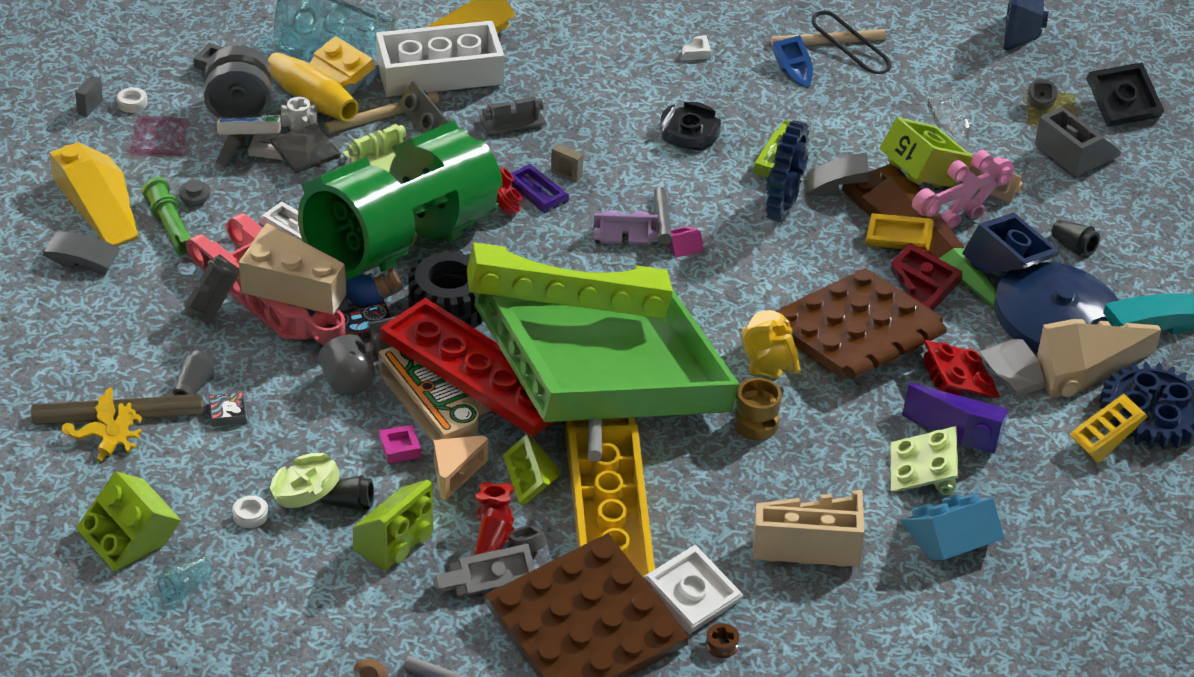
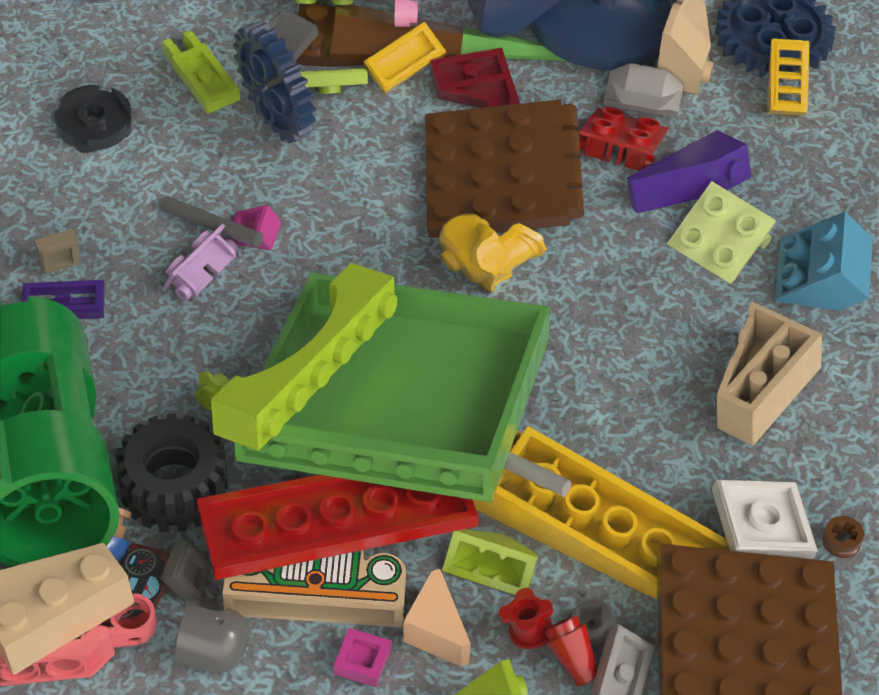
camera: 55 degrees left, 10 degrees up
(757, 409) = (570, 313): pearl gold wheel -> none
(839, 208) = (331, 80): none -> lime plate

